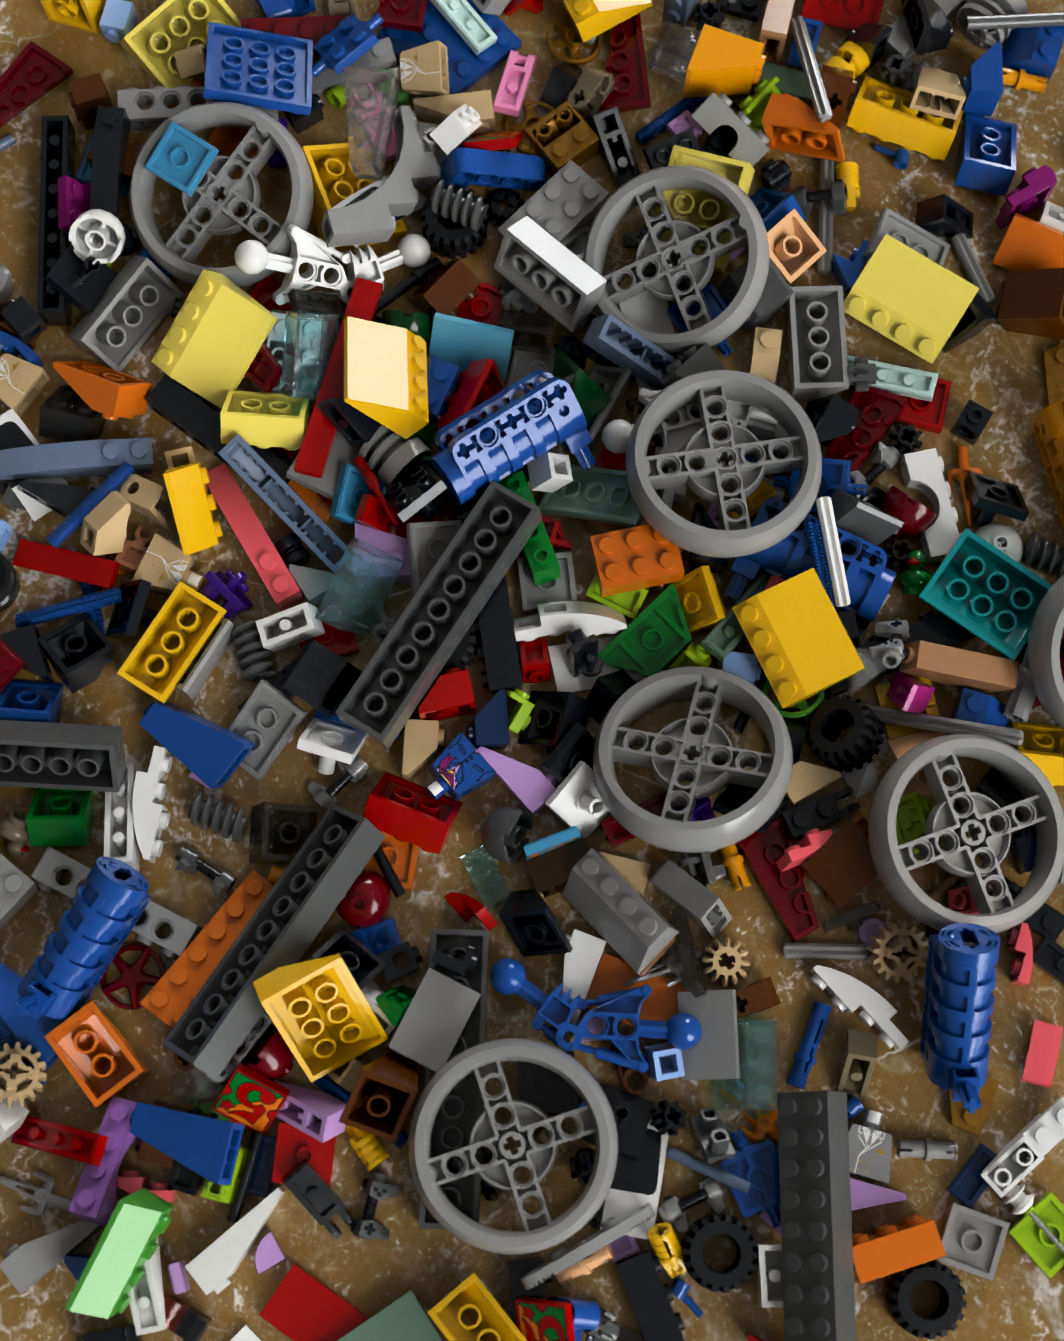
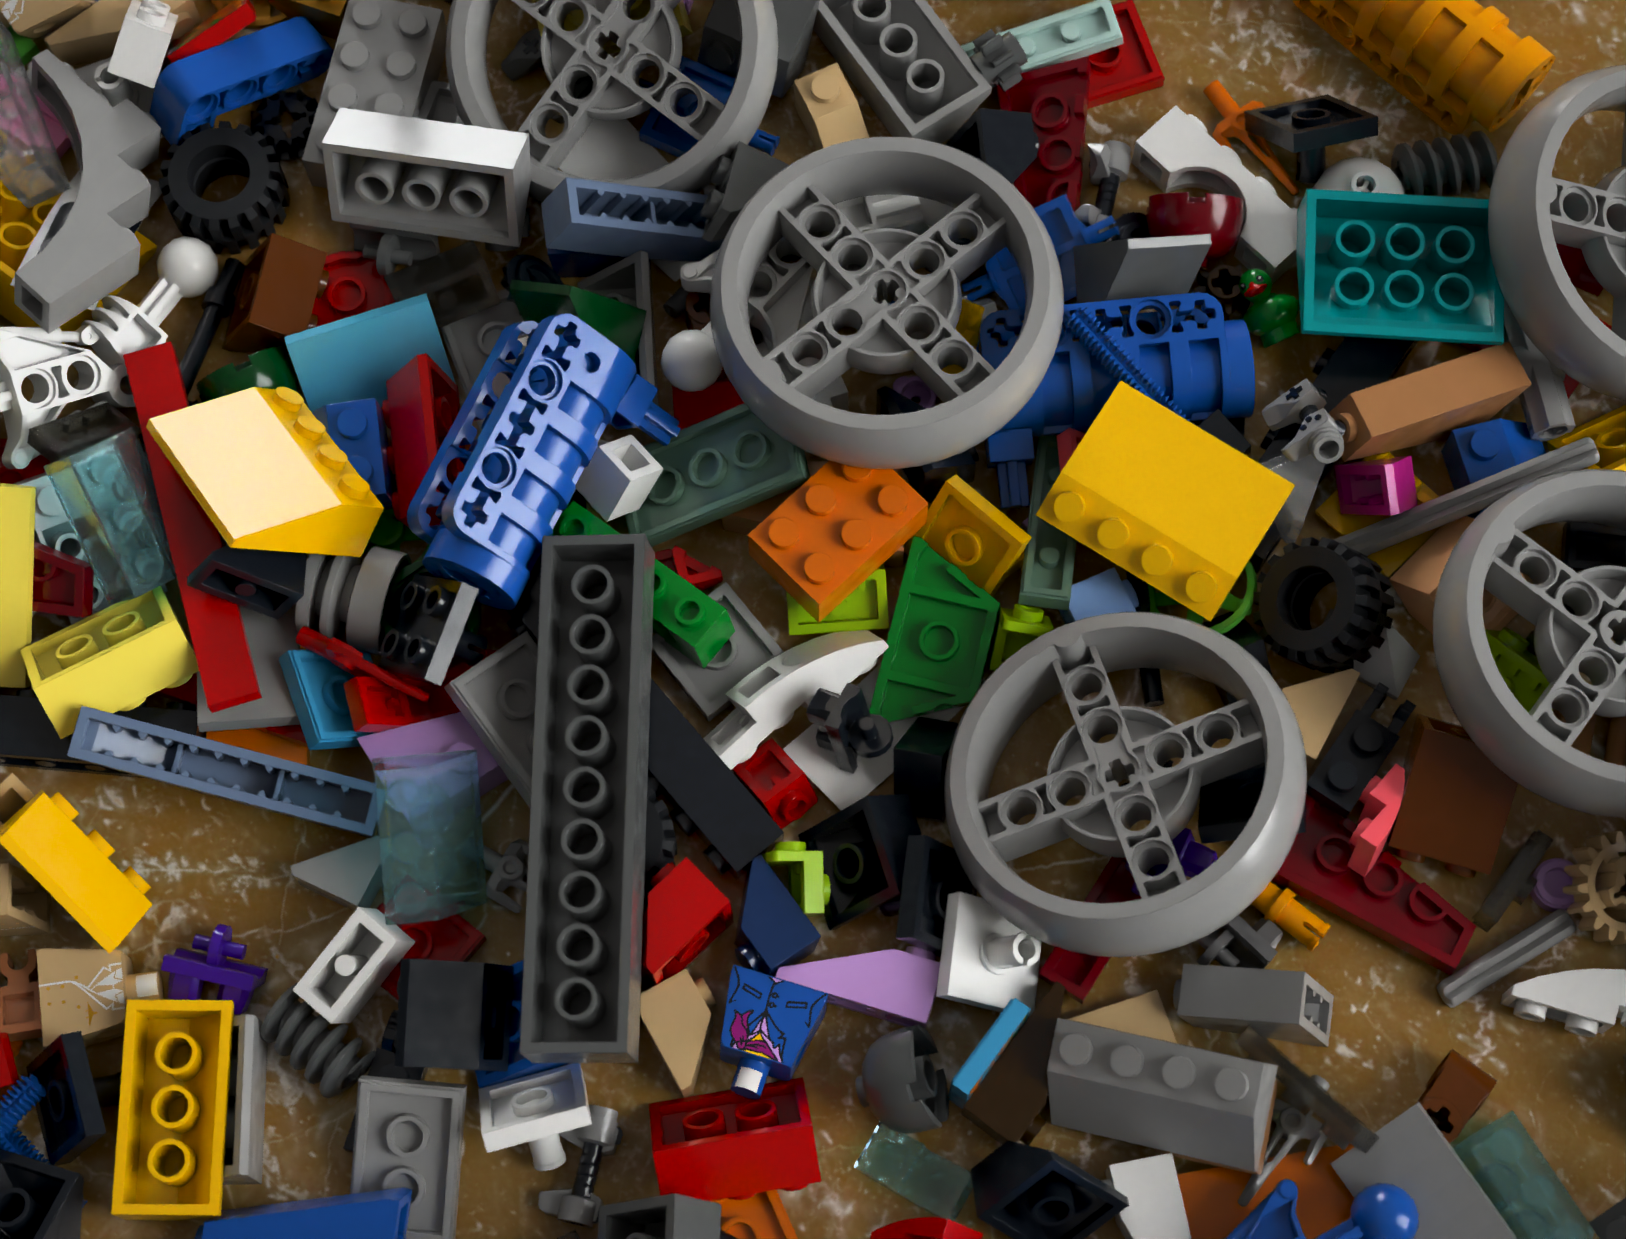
camera: 30 degrees left, 5 degrees down
(253, 538) = (205, 862): coral slope -> none
(292, 550) = (279, 843): black wheel -> none
(457, 206) = (219, 154): dark grey piece -> none
(728, 952) = (1381, 1088): tan gear -> none
(807, 1050) = (1582, 1129): blue pin -> none
(833, 551) = (1134, 339): white axle -> none
(906, 433) = (1121, 118): black gear -> none
(971, 422) = (1201, 40): black brick -> none

